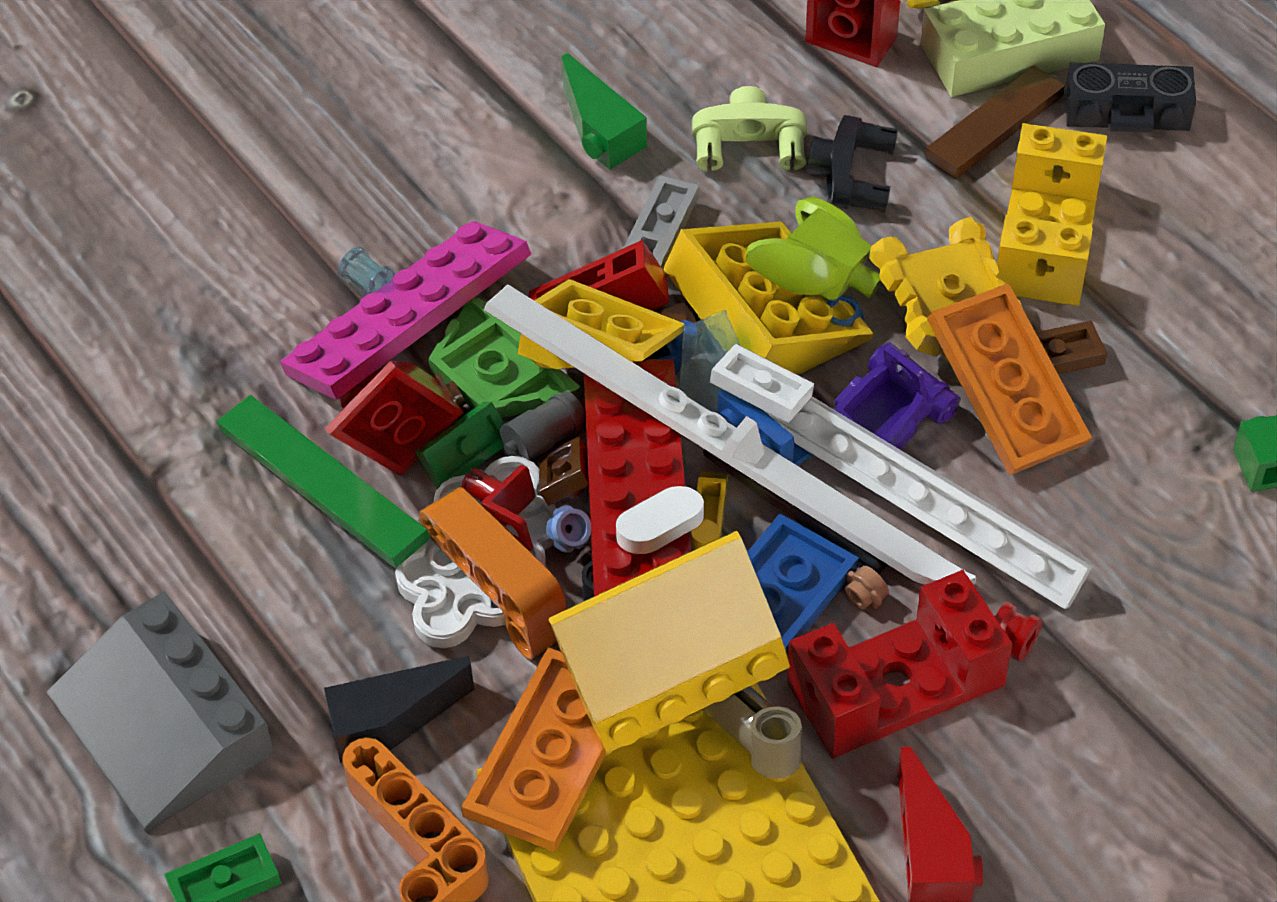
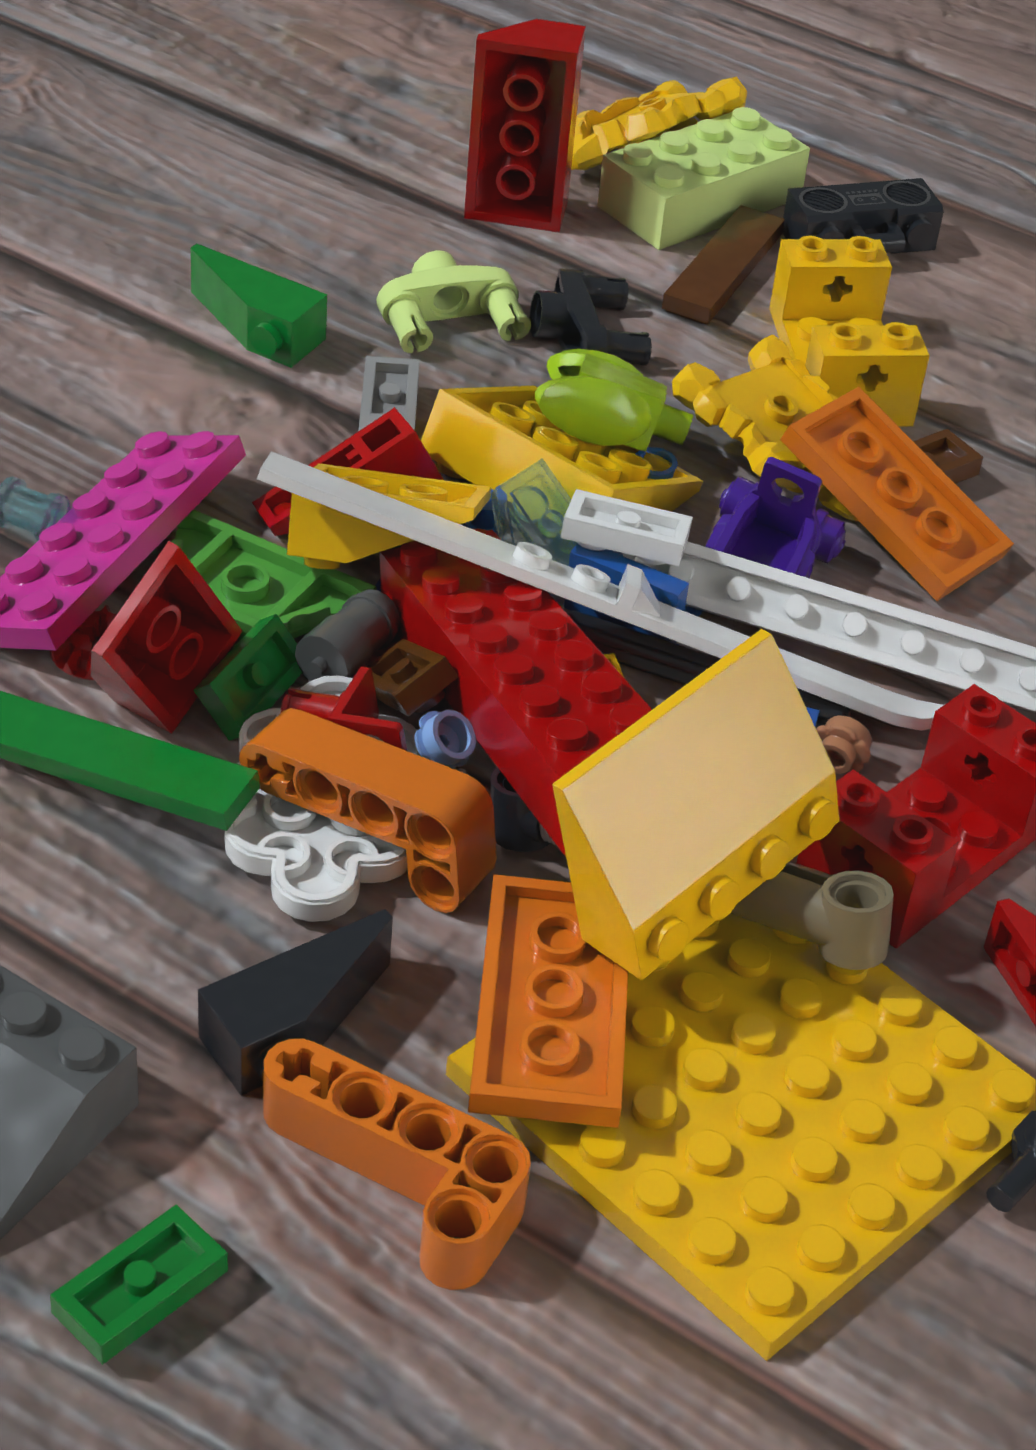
camera: 25 degrees left, 10 degrees down
(659, 520) = (600, 676): white tile -> none

